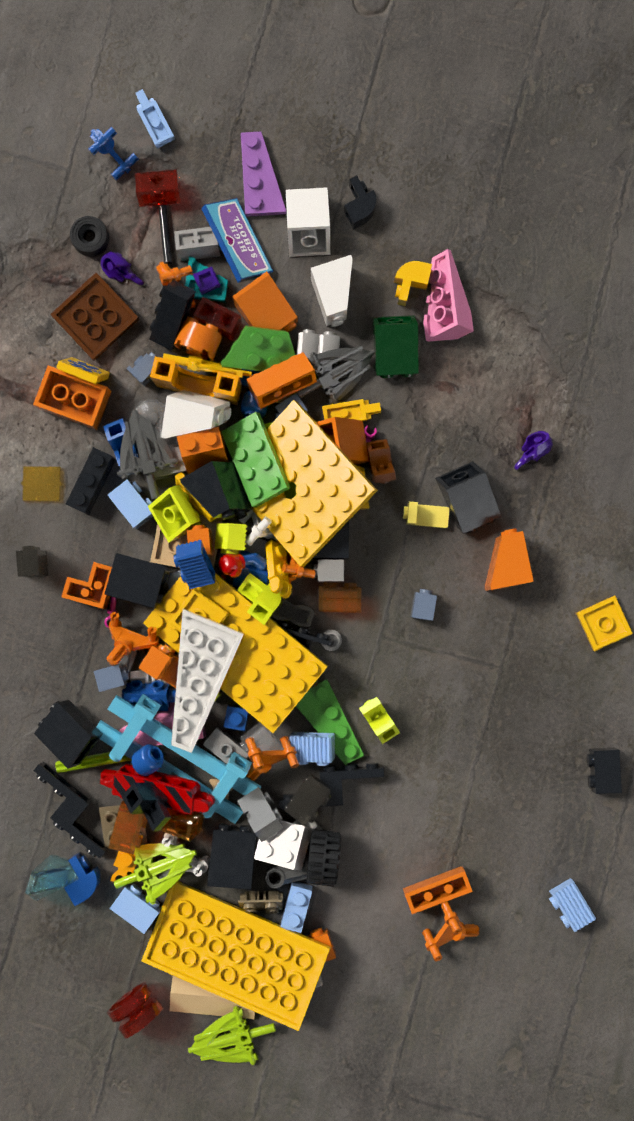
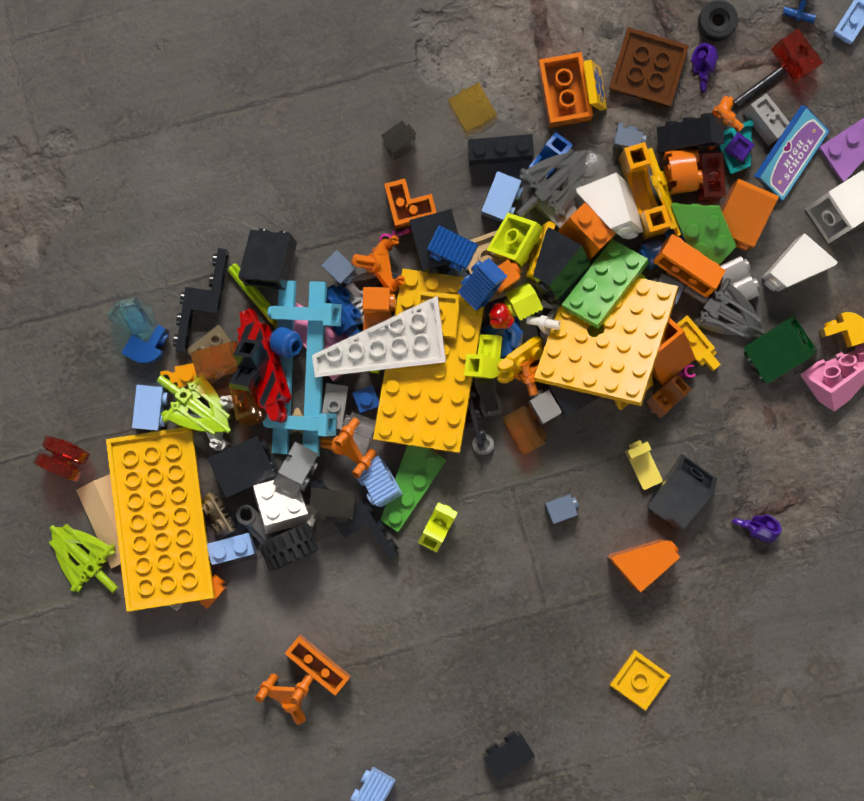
camera: 60 degrees right, 0 degrees up
(150, 572) = (452, 248): none -> blue brick

